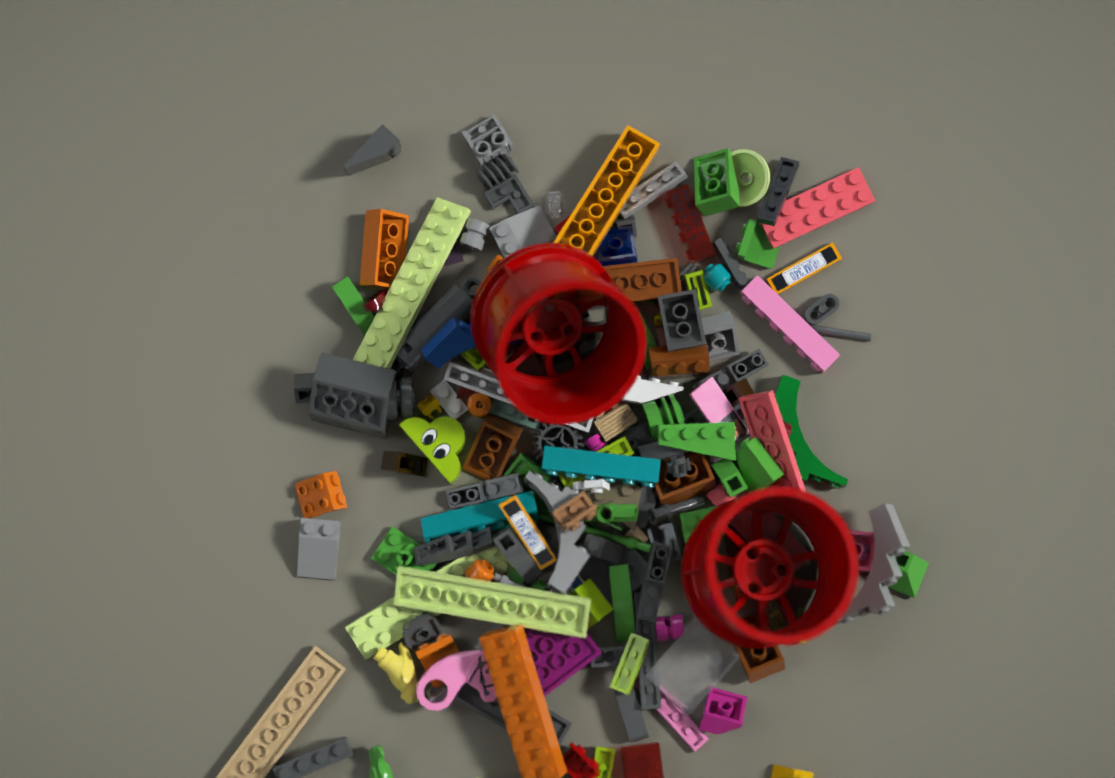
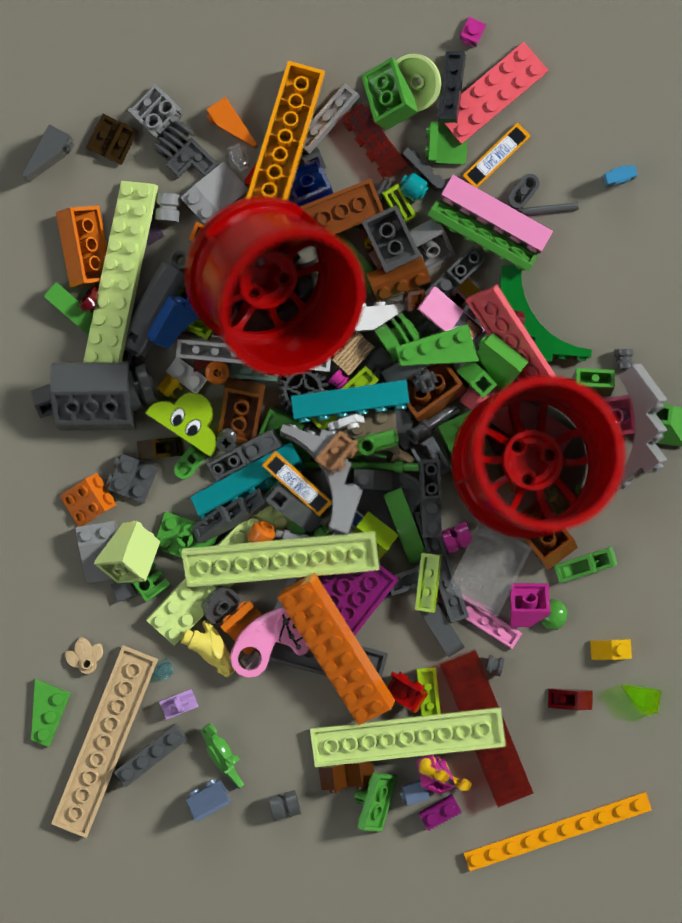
camera: 15 degrees left, 5 degrees up
(224, 691) = (47, 711): none -> bright green wing
(275, 643) = (83, 653): none -> tan plate
(330, 591) = (122, 590): none -> dark grey tile
(345, 557) = (128, 553): none -> yellowish green slope
(349, 680) = (164, 669): none -> clear light blue plate
(352, 581) = (153, 590): none -> bright green brick
(354, 718) = (178, 704): none -> lavender hips
(369, 485) = (132, 478): none -> dark grey plate
(422, 490) = (184, 468): none -> bright green plate
(438, 155) = (111, 139): none -> dark brown slope
(474, 472) = (230, 438): none -> dark grey wheel
(554, 166) = (228, 121): none -> orange slope
(673, 763) = (494, 665): none -> dark grey wheel
(688, 383) = (413, 298): none -> reddish brown tile
(747, 732) = (557, 616): none -> bright green hair
(768, 338) = (481, 234): none -> bright green plate
(788, 688) = (585, 564): none -> bright green slope
(811, 145) = (472, 32): none -> dark pink bracket
(849, 510) = (598, 380): none -> bright green brick
(877, 497) = (624, 360): none -> dark grey wheel
(918, 318) = (619, 175): none -> dark azure brick

